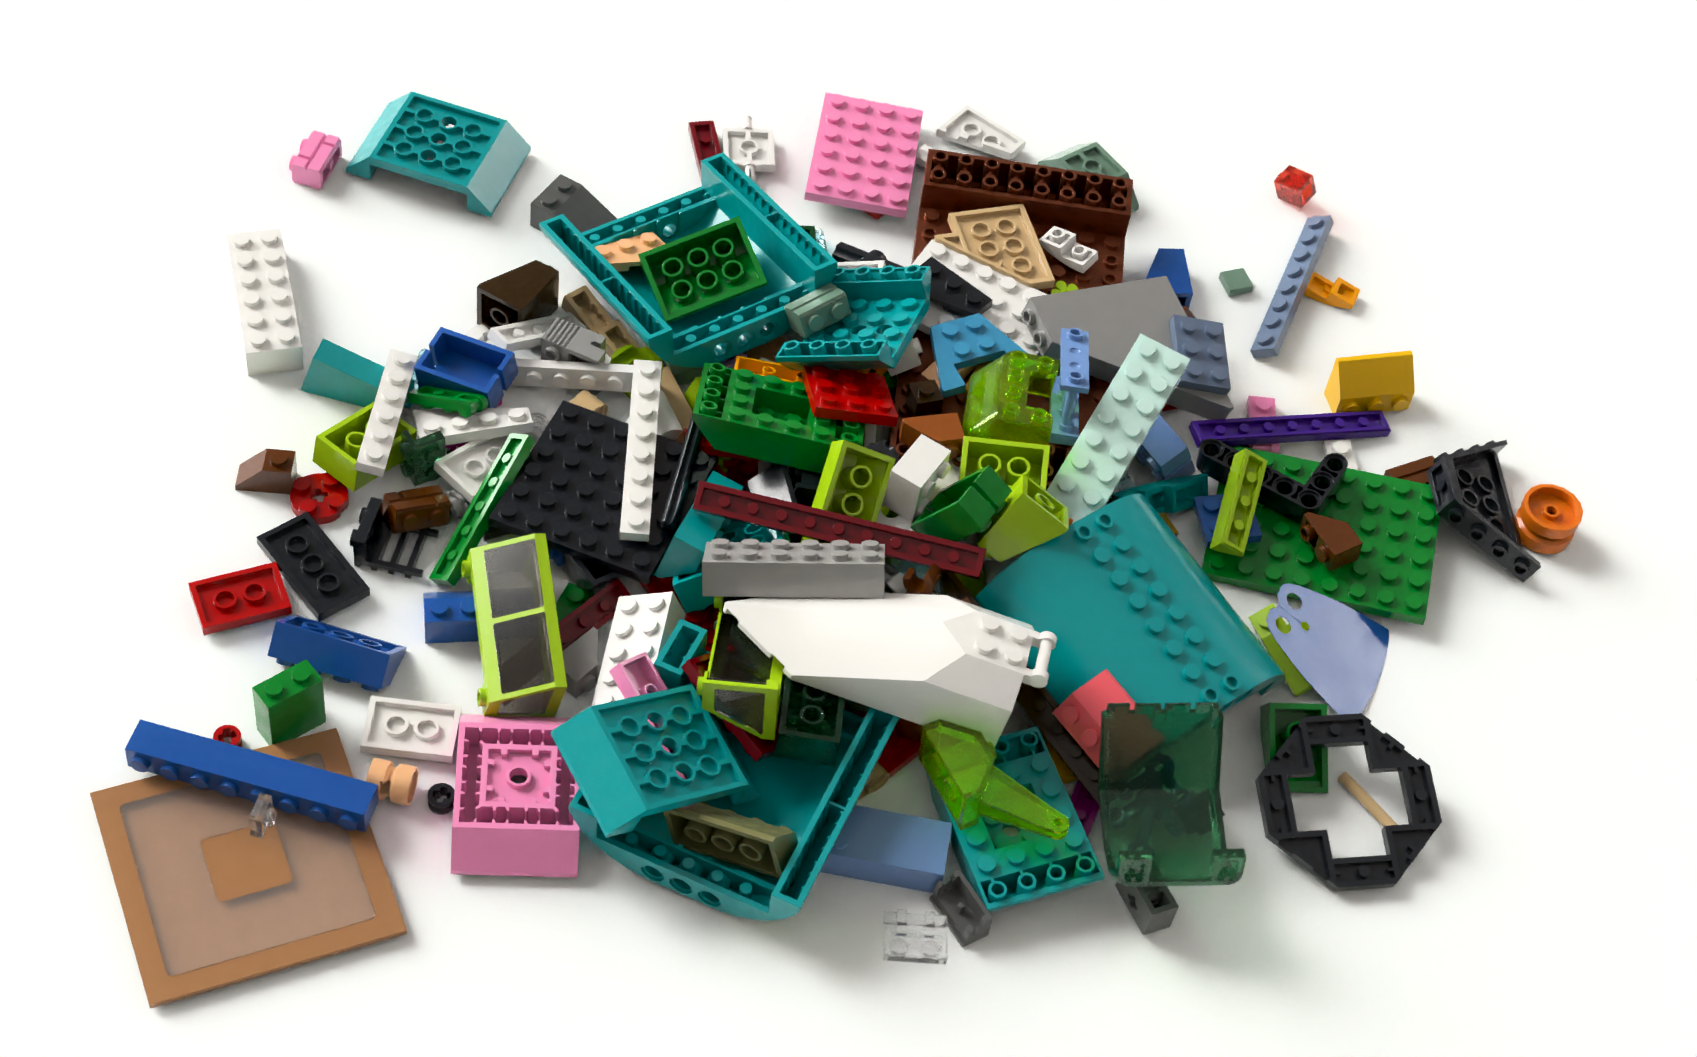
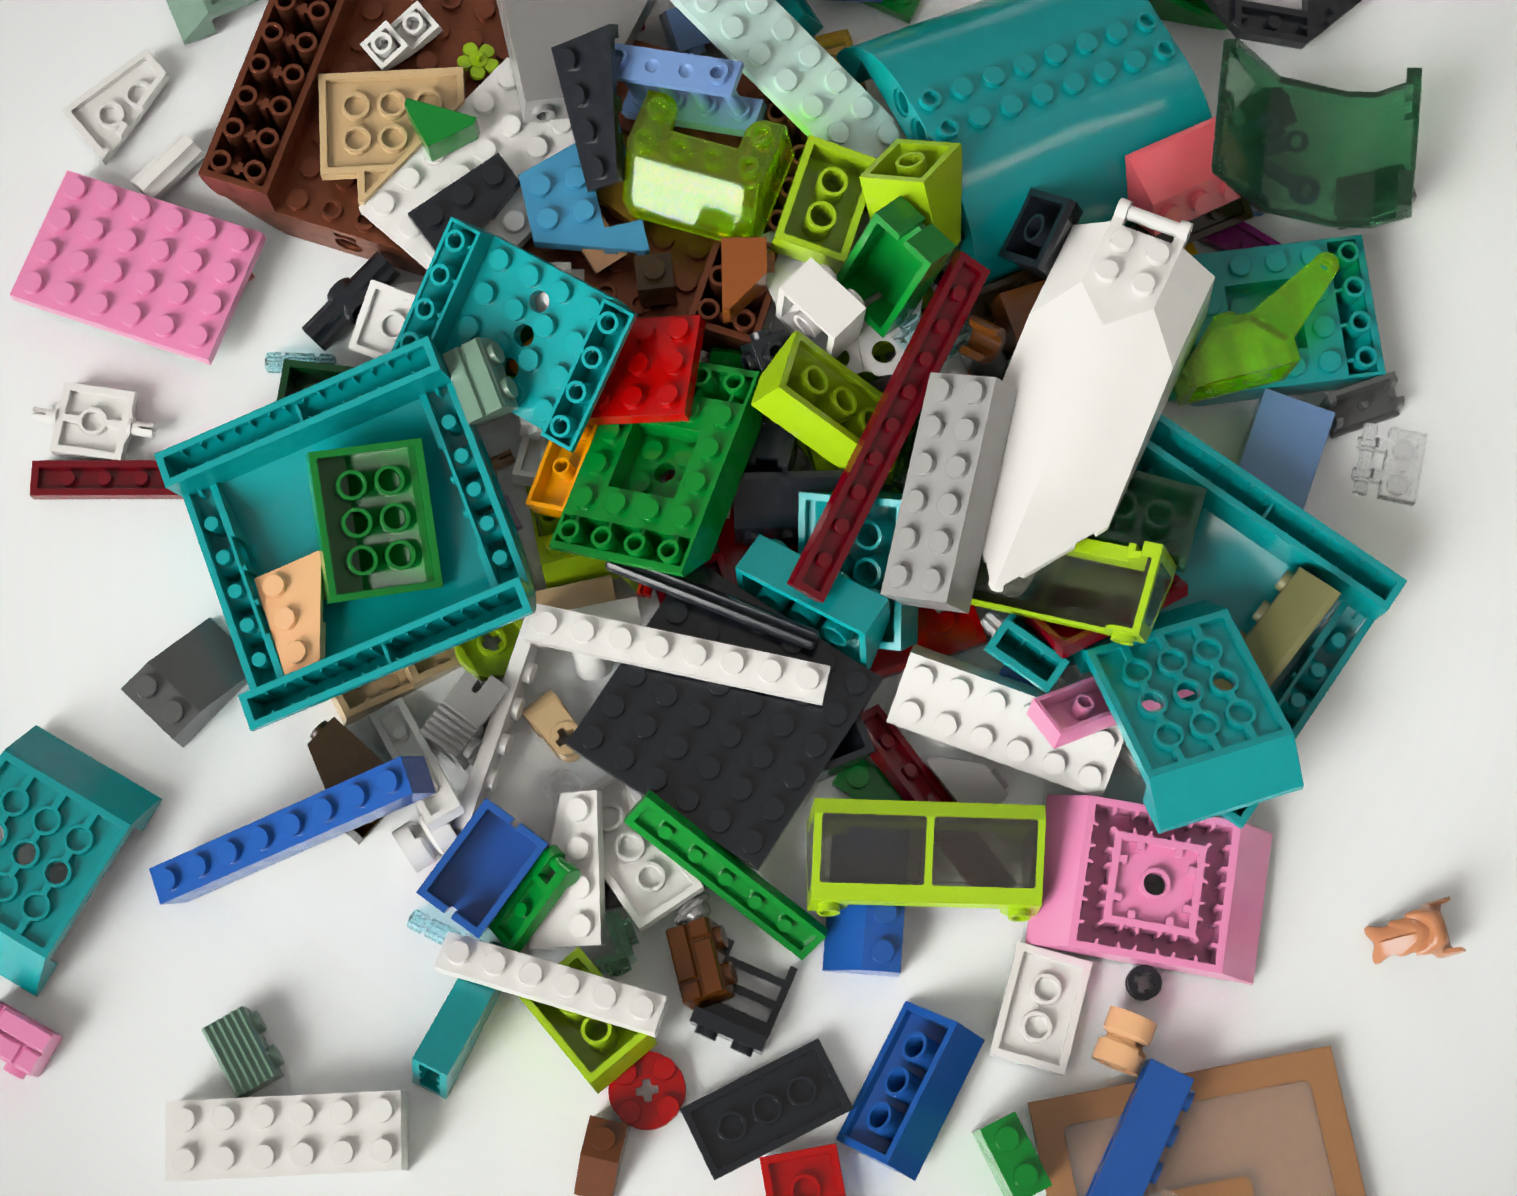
camera: 70 degrees left, 25 degrees up
(320, 273) = (243, 1051): none -> sand green brick
(474, 257) = (293, 829): none -> blue brick
(506, 973) = (1420, 932): none -> nougat hair
(996, 264) = (440, 128): none -> green slope
(1036, 612) = (1040, 231): none -> black slope
(1037, 330) = (589, 90): none -> black wing

